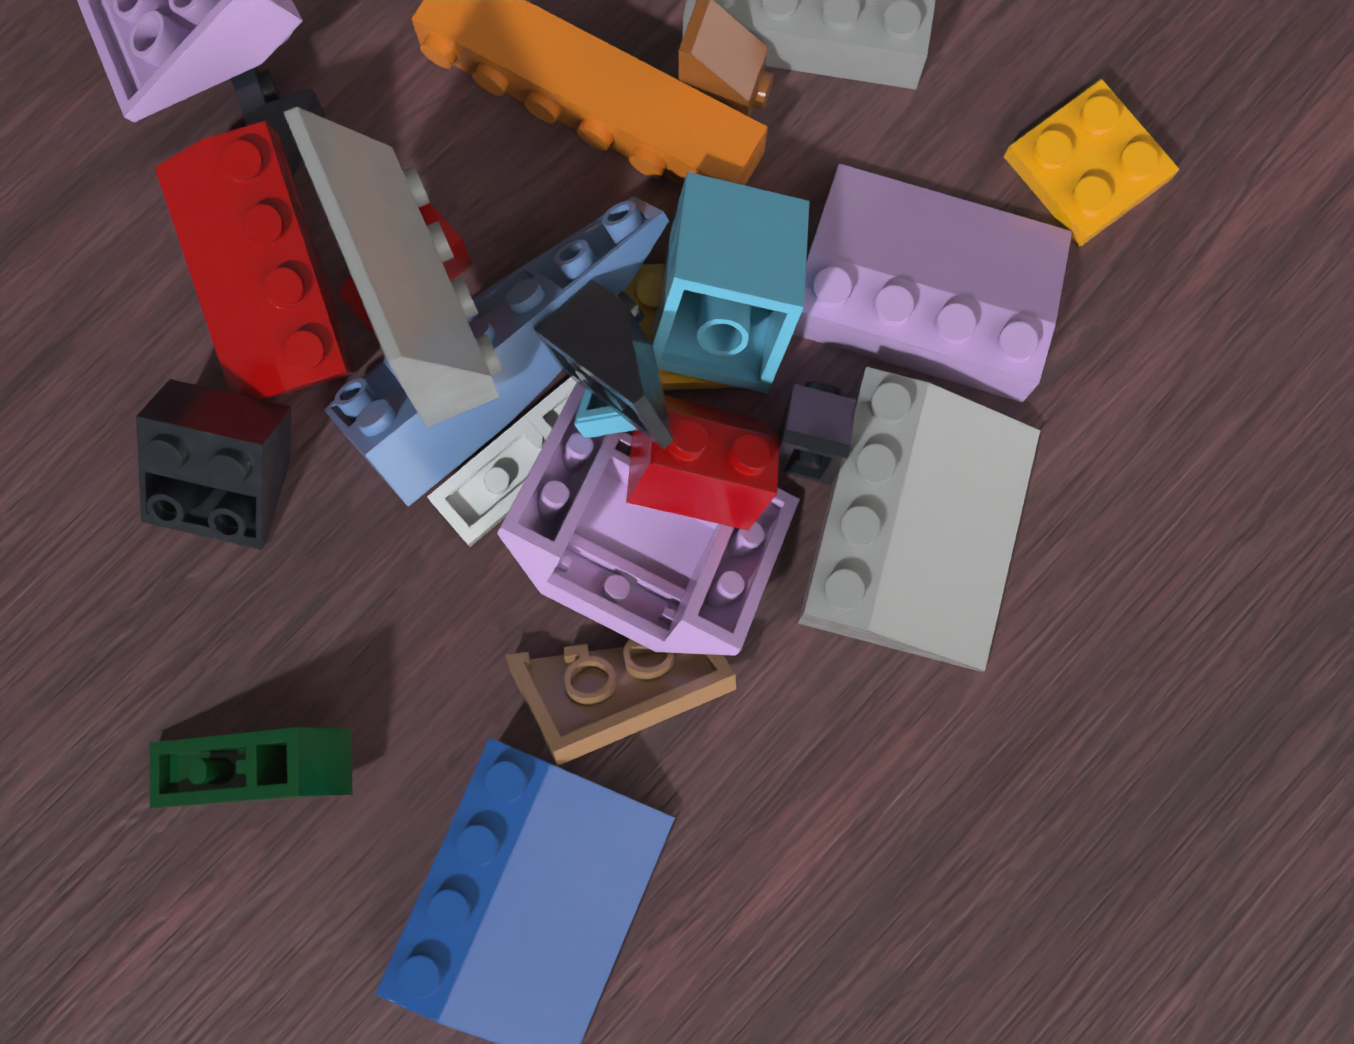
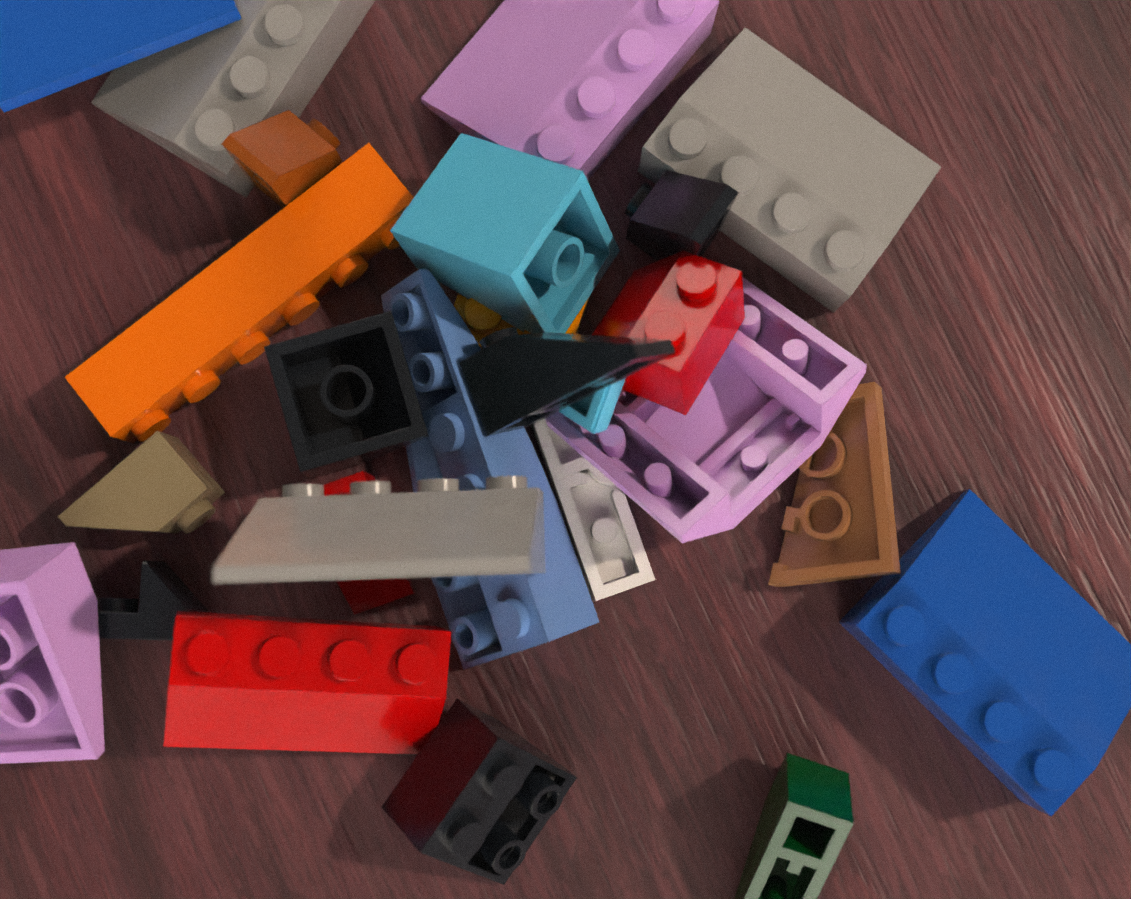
camera: 70 degrees left, 5 degrees up
(380, 75) = (149, 491): none -> dark tan slope
(525, 196) = (346, 394): none -> black slope

